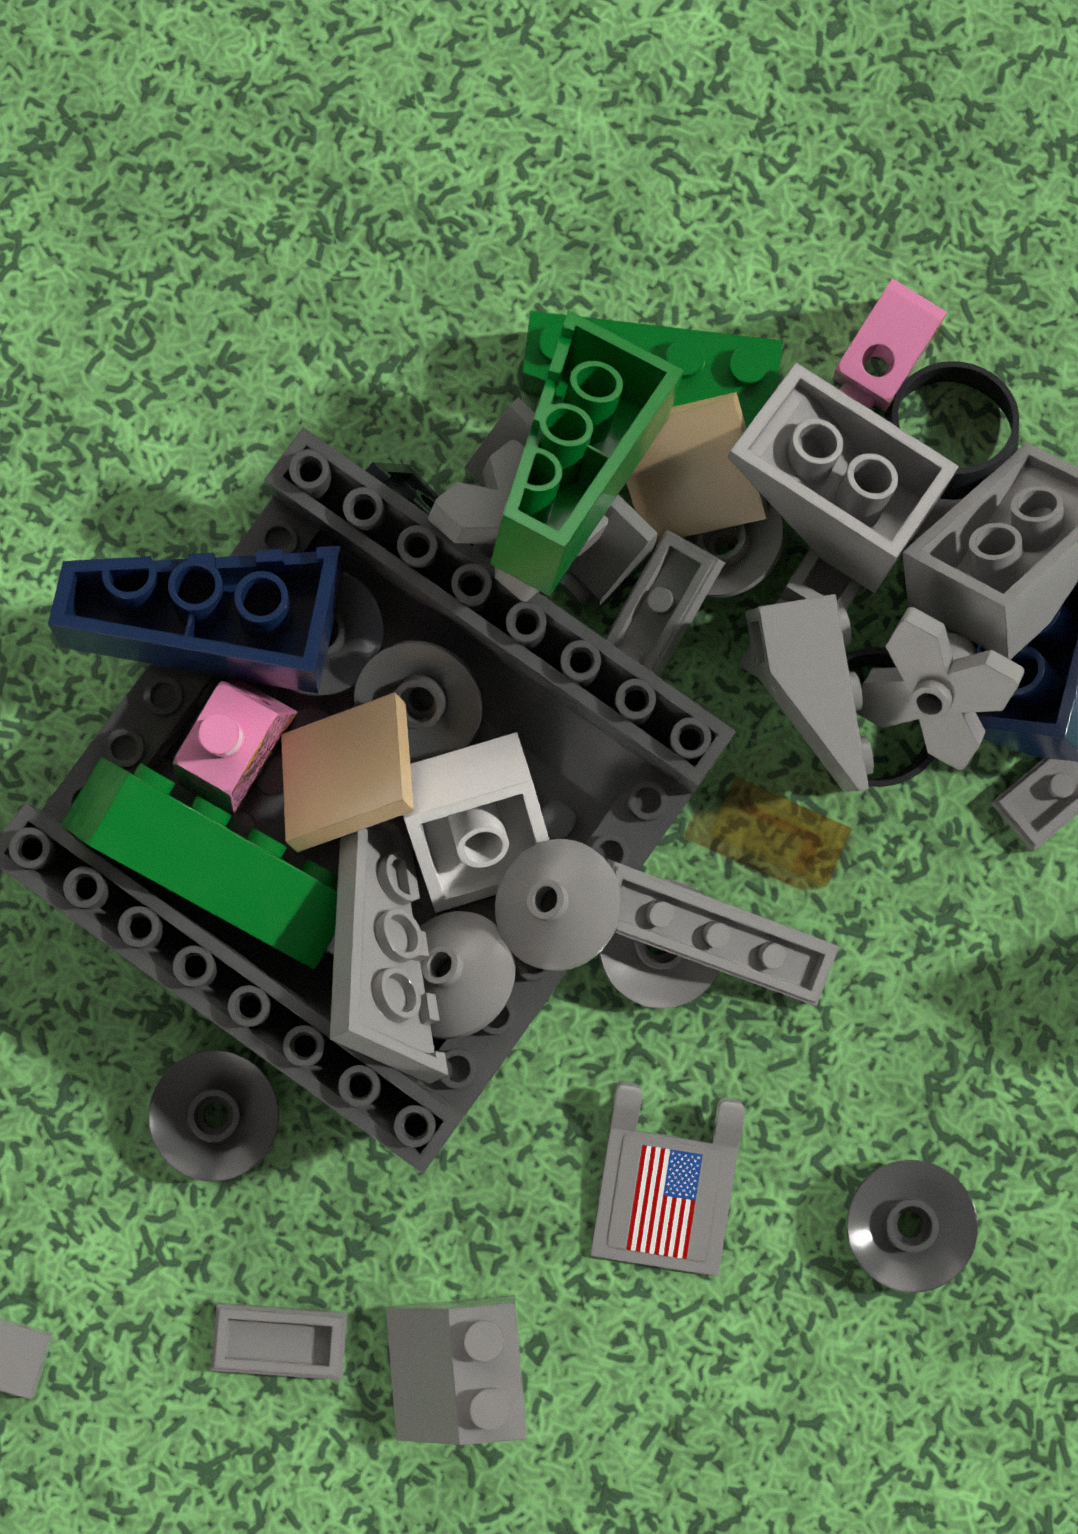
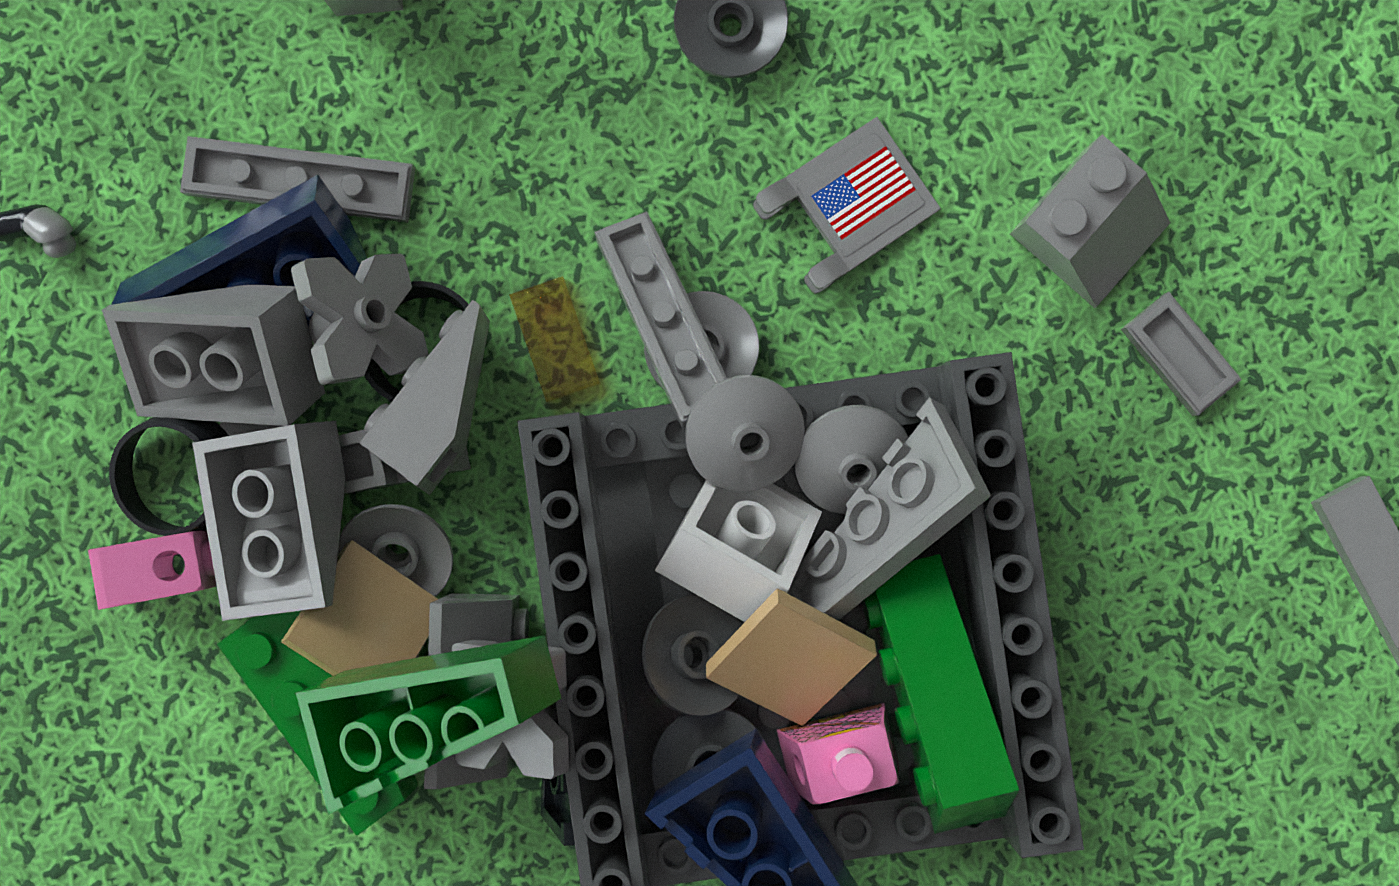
camera: 130 degrees left, 5 degrees up
(180, 1123) = (1113, 535): dark grey dish -> none
(664, 601) = (474, 556): light grey tile -> none

